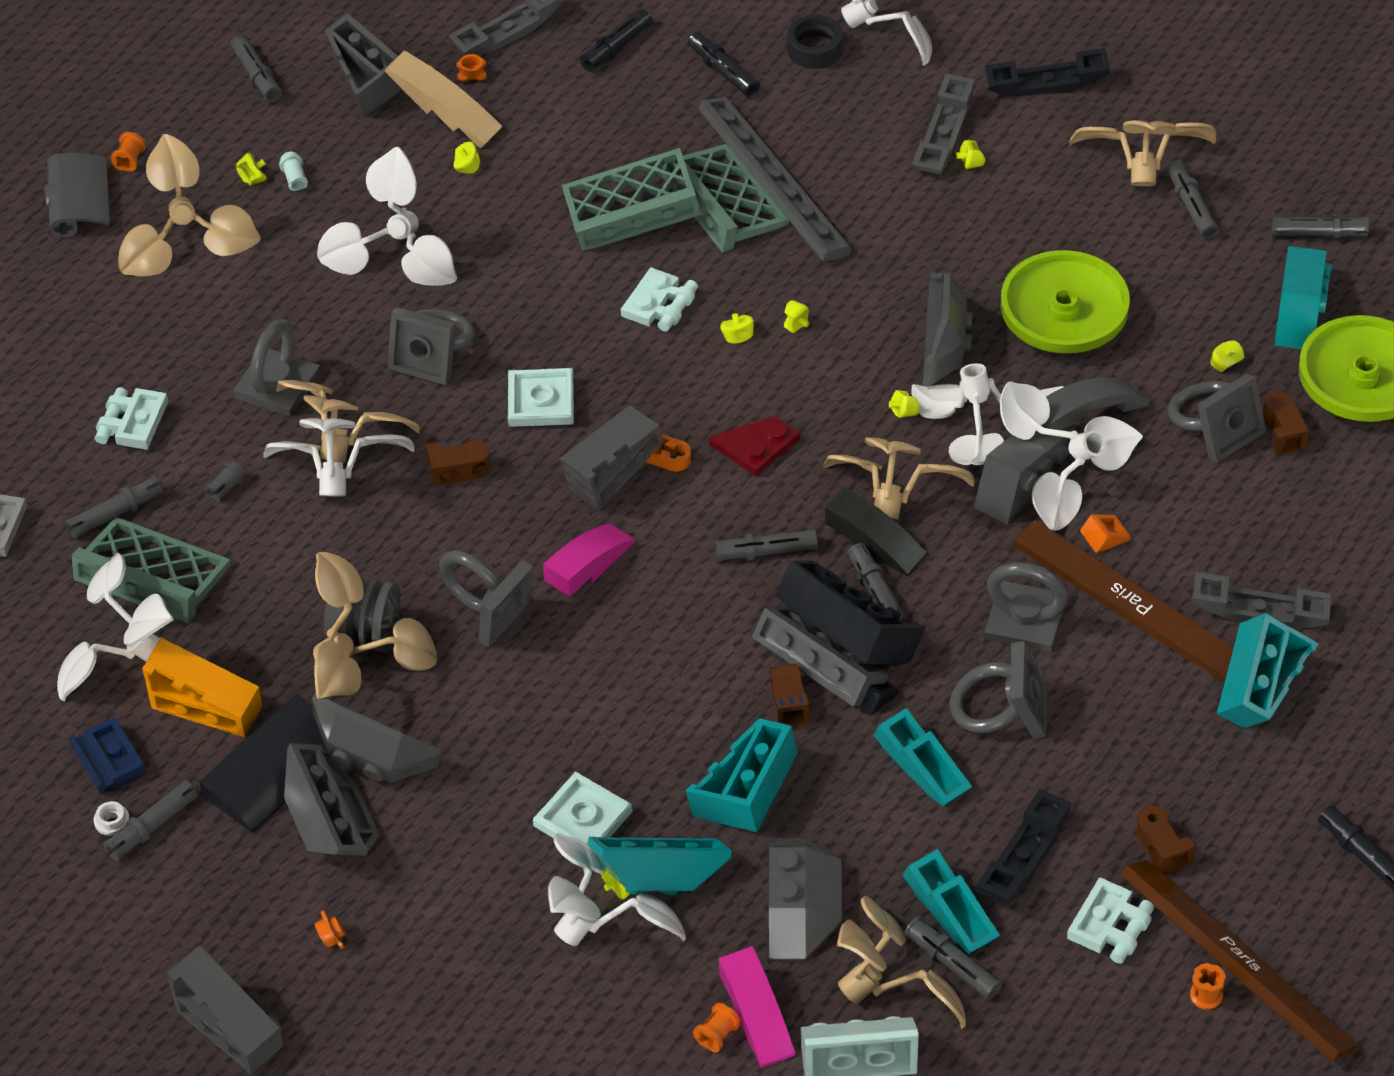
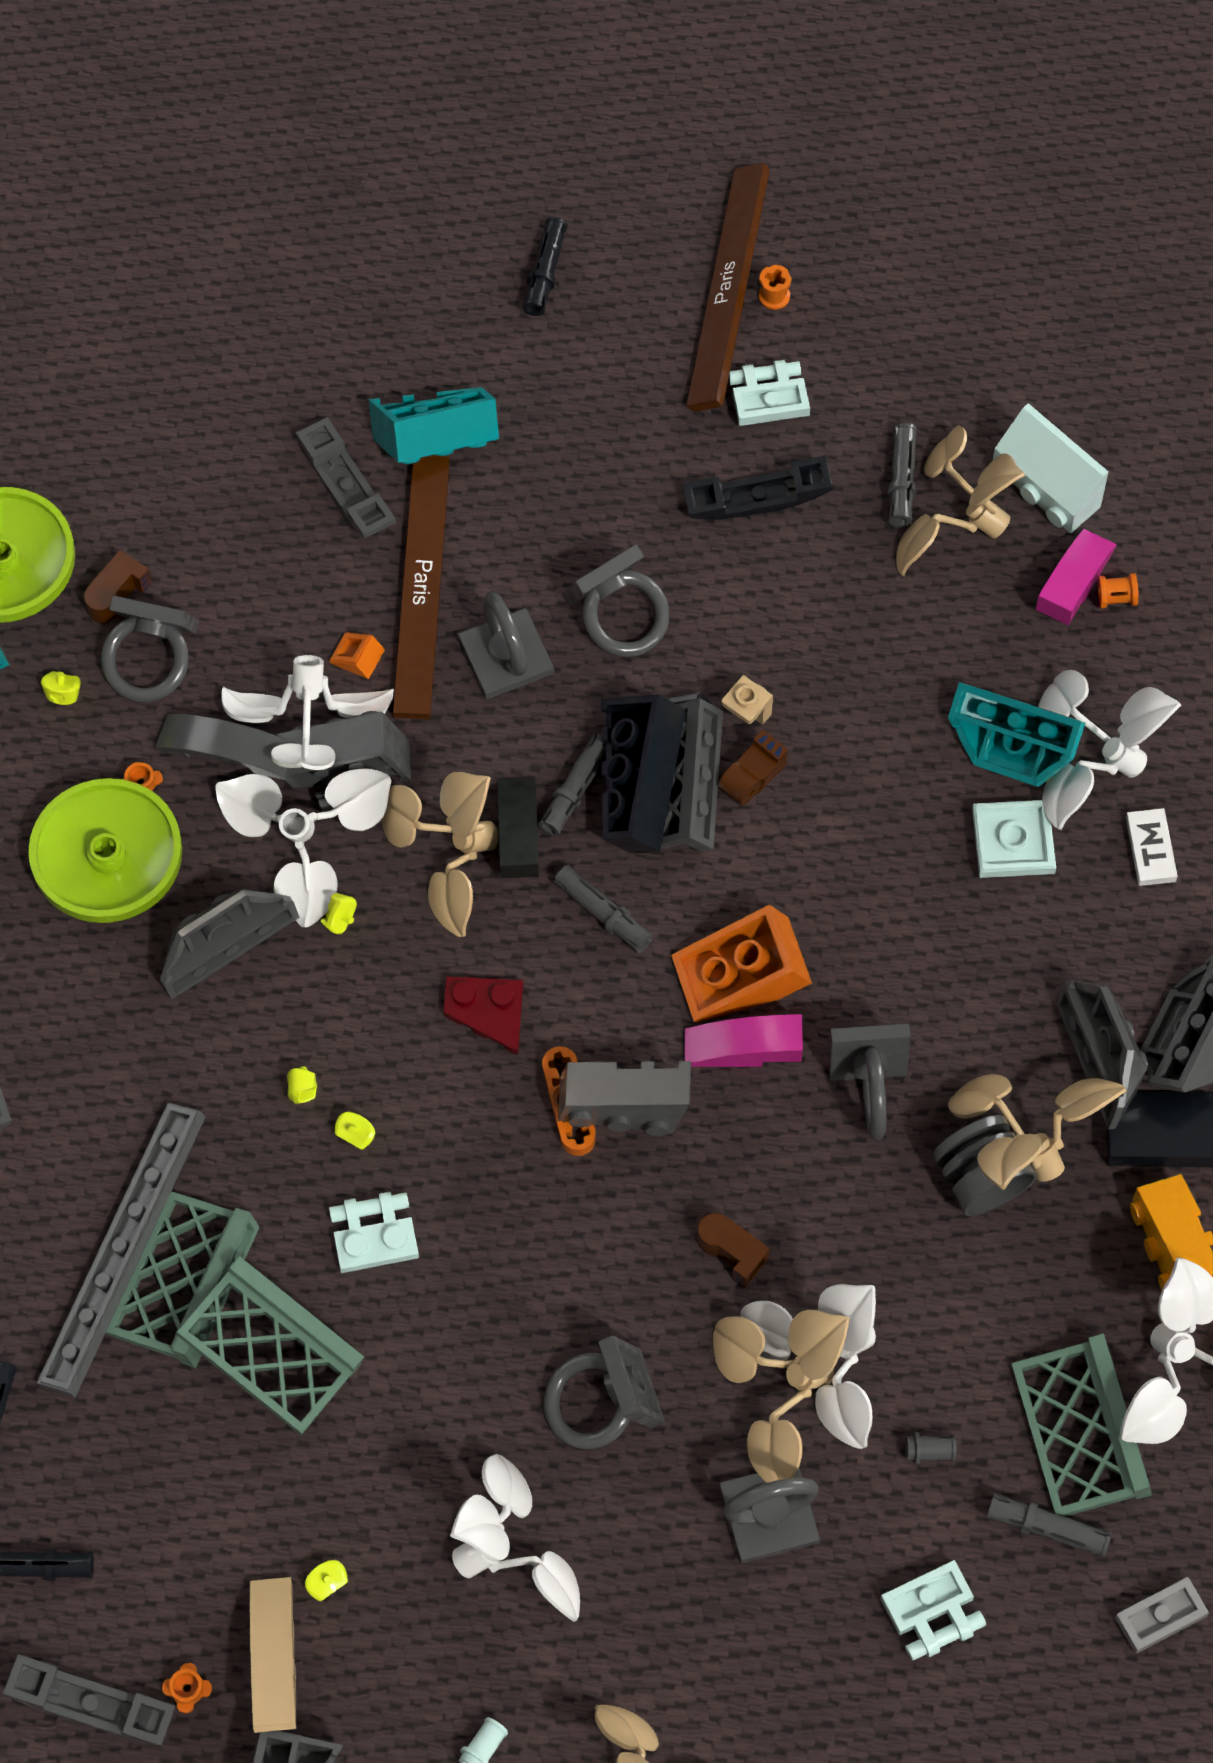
camera: 130 degrees left, 15 degrees up
(493, 899) = (1151, 847): none -> white tile
(540, 397) = (589, 1239): light aqua plate -> none
(642, 592) = (742, 966): none -> orange slope
(747, 779) = (873, 729): teal wedge -> none
(802, 898) = (939, 622): dark grey wedge -> none
(842, 717) = (749, 701): none -> tan bracket
(922, 757) = (729, 626): teal slope -> none
(950, 902) = (853, 511): teal slope -> none
(1109, 351) = (143, 771): none -> orange plate
(1161, 841) = (666, 398): reddish brown leg -> none

